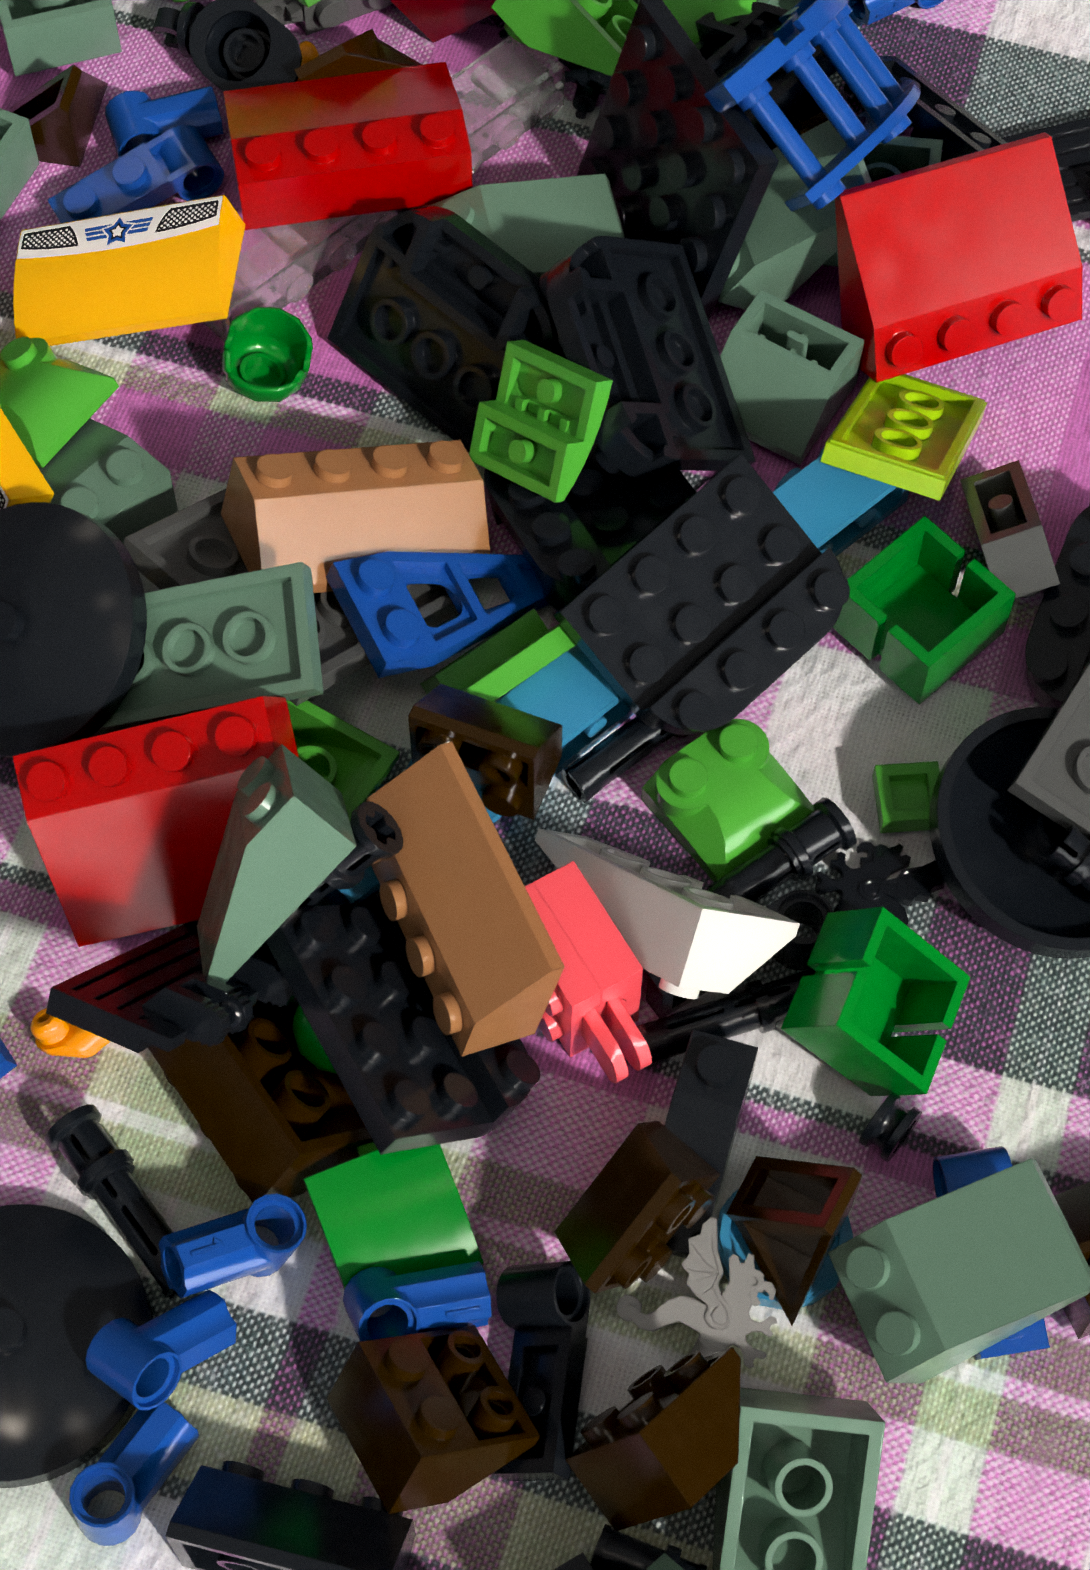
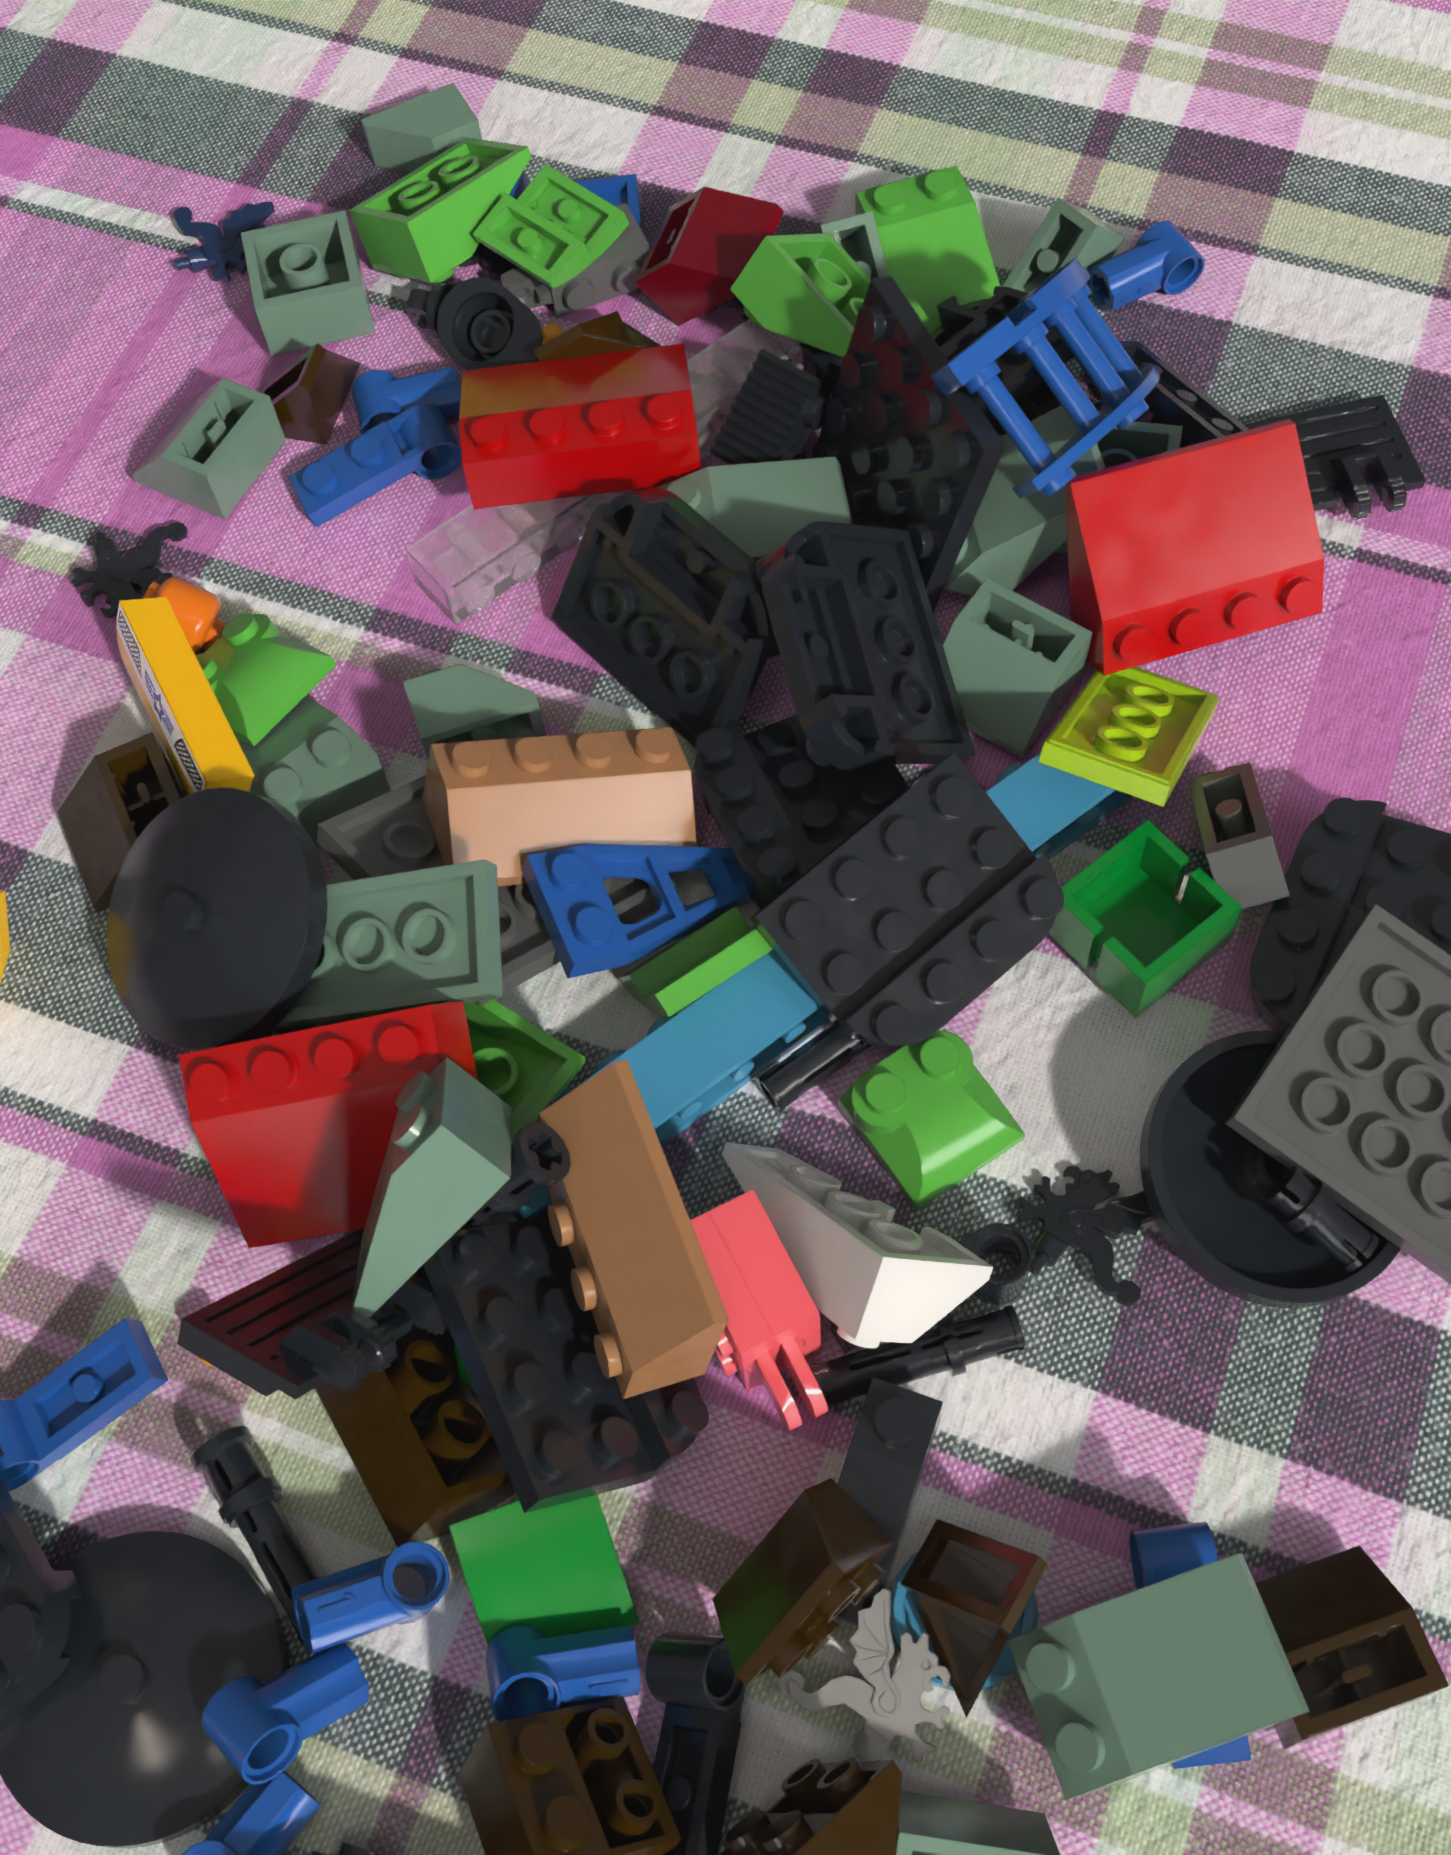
camera: 10 degrees right, 0 degrees up
(127, 271) = (355, 549): yellow slope -> none
(253, 423) = (471, 706): none -> sand green slope
(266, 354) = (488, 632): green hair -> none
(501, 747) = (676, 1059): dark brown slope -> none
(539, 131) = (772, 413): none -> black brick
(540, 420) = (751, 711): bright green slope -> none
(789, 853) = (987, 1181): black pin -> none
(867, 984) = (1060, 1335): green piece -> none
(890, 1126) = (1084, 1491): black bush -> none
(904, 795) = (1115, 1118): bright green plate -> none

